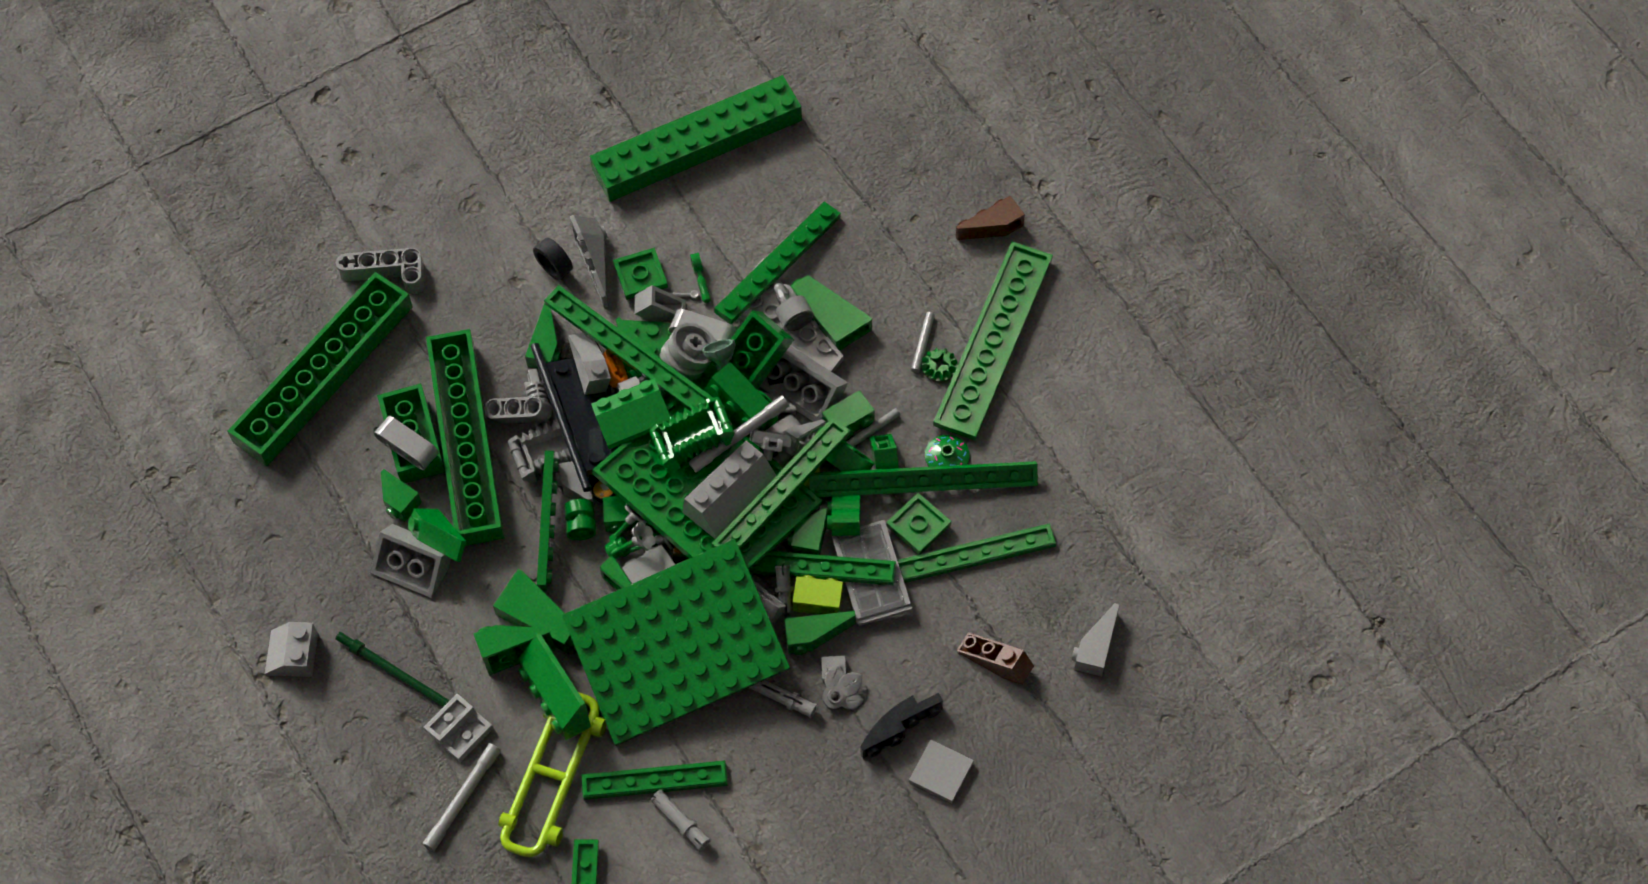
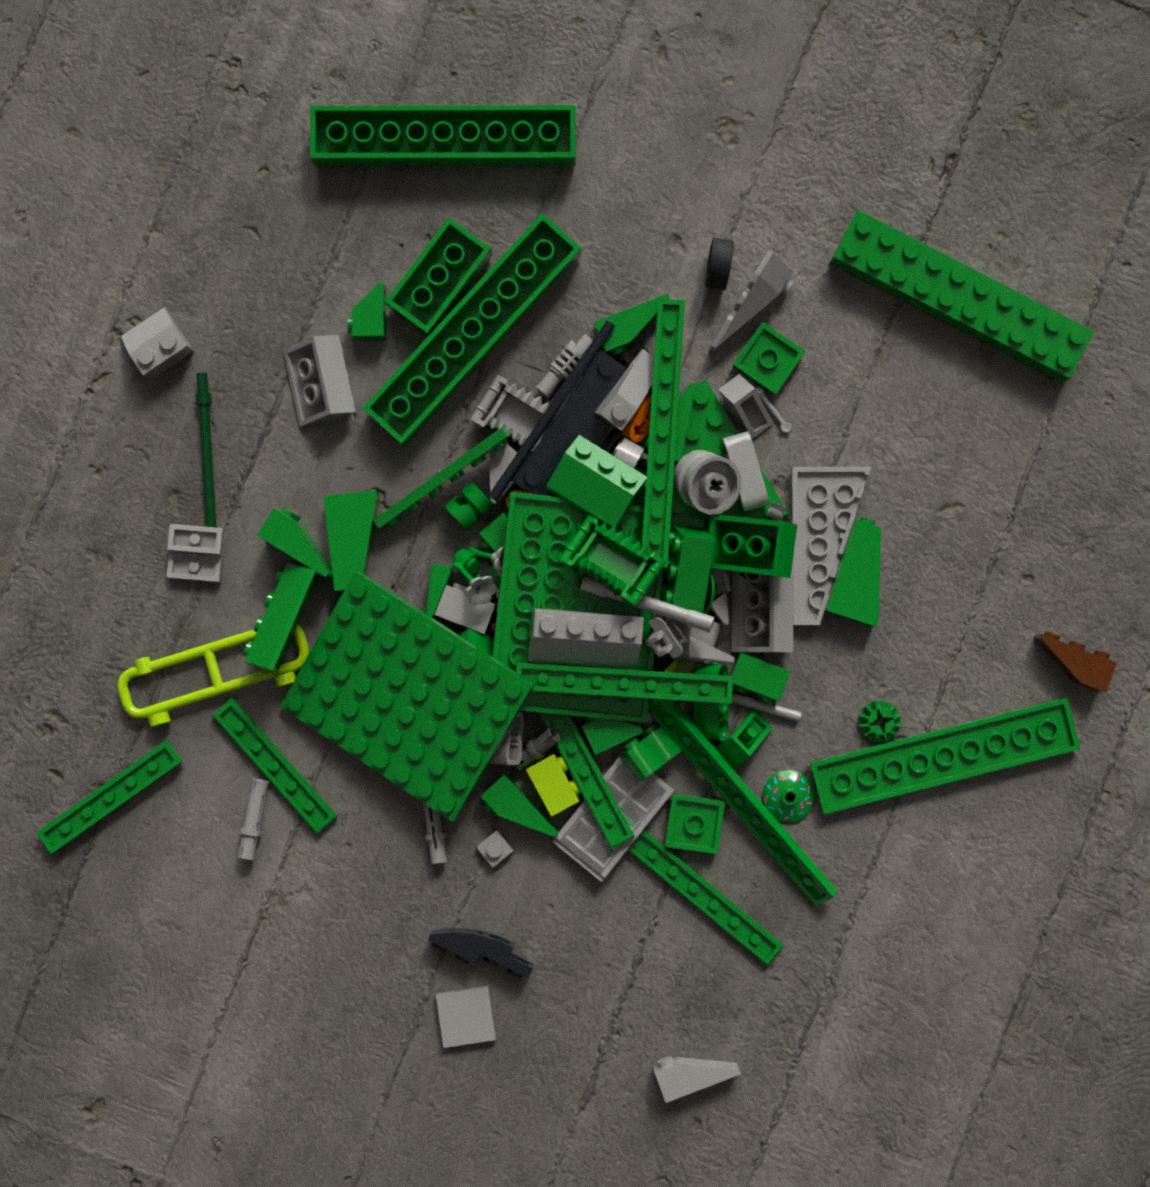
camera: 55 degrees right, 25 degrees up
(349, 271) = (590, 101): light grey beam -> none
(406, 443) = (415, 288): light grey beam -> none
(437, 532) = (354, 386): green slope -> none
(440, 829) = (93, 612): light grey piece -> none
(526, 413) = (526, 353): light grey beam -> none
(697, 268) = (804, 423): green piece -> none
(719, 352) = (721, 517): sand green piece -> none
(777, 263) = (875, 486): green plate -> none
(794, 310) = (831, 546): light grey piece -> none
(845, 686) = (481, 873): light grey plate -> none
(921, 347) = (893, 687): light grey bar -> none
(997, 657) = (610, 989): reddish brown slope -> none

